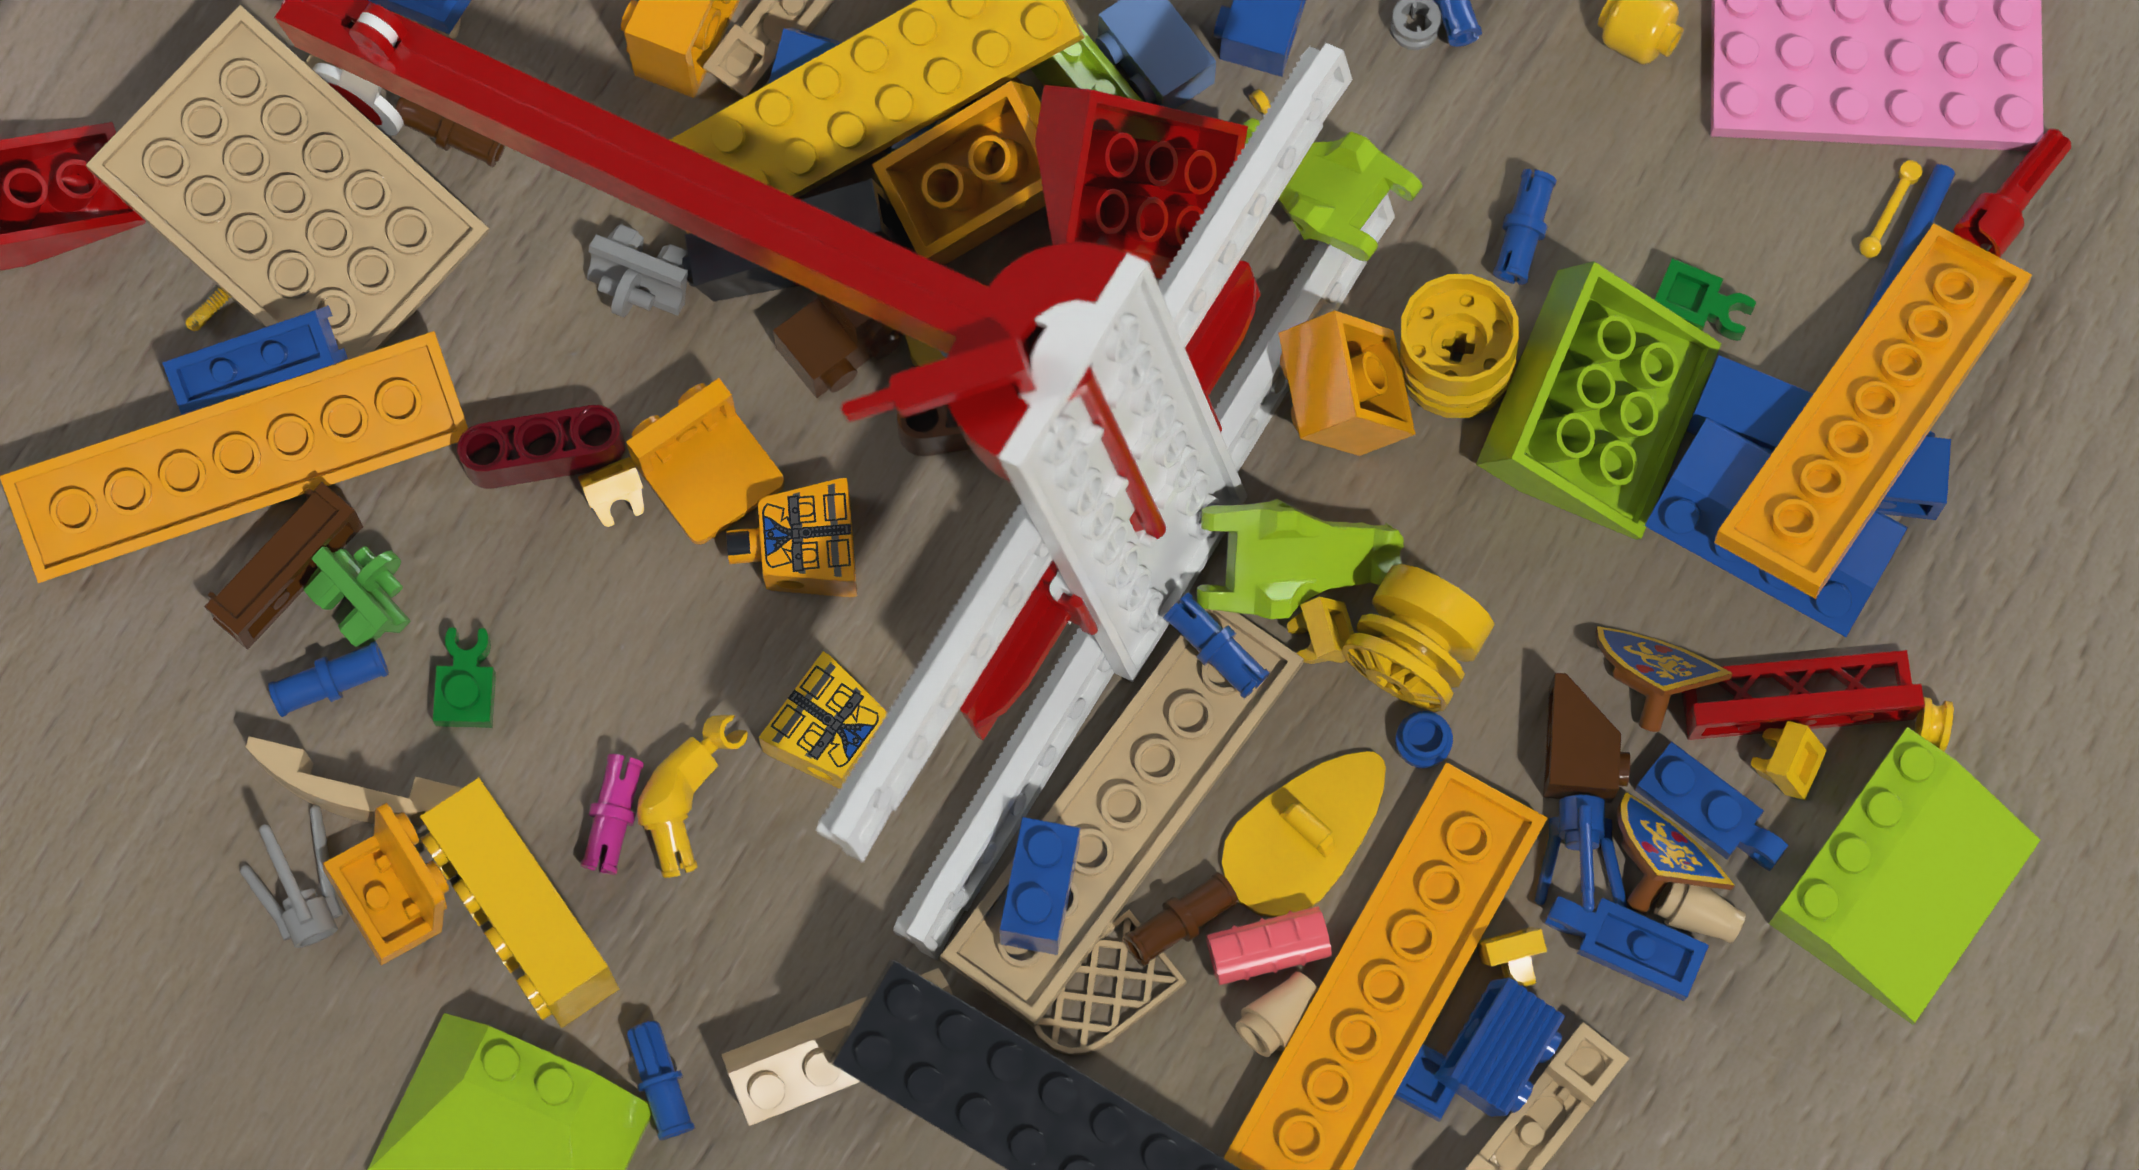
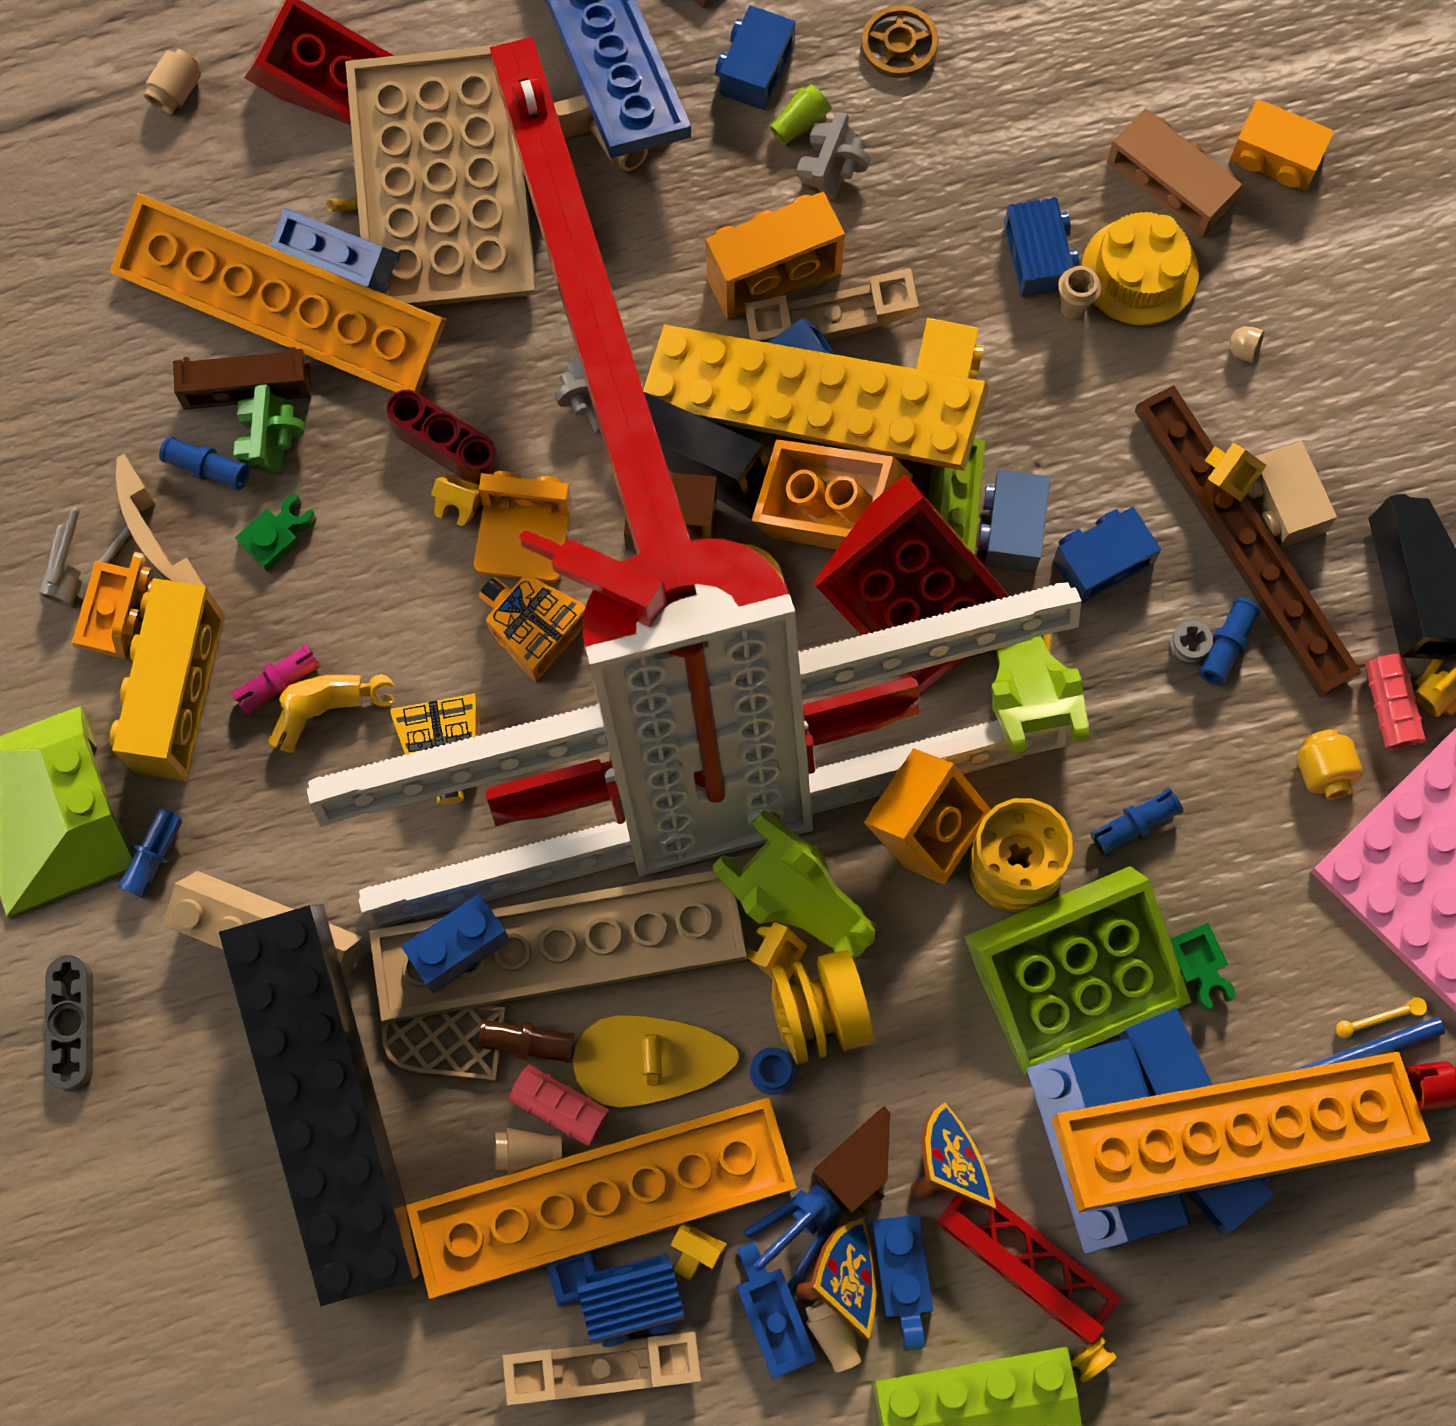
camera: 45 degrees right, 0 degrees up
(1216, 645) = (699, 899): blue pin -> none
(1794, 761) = (983, 1297): yellow tile -> none

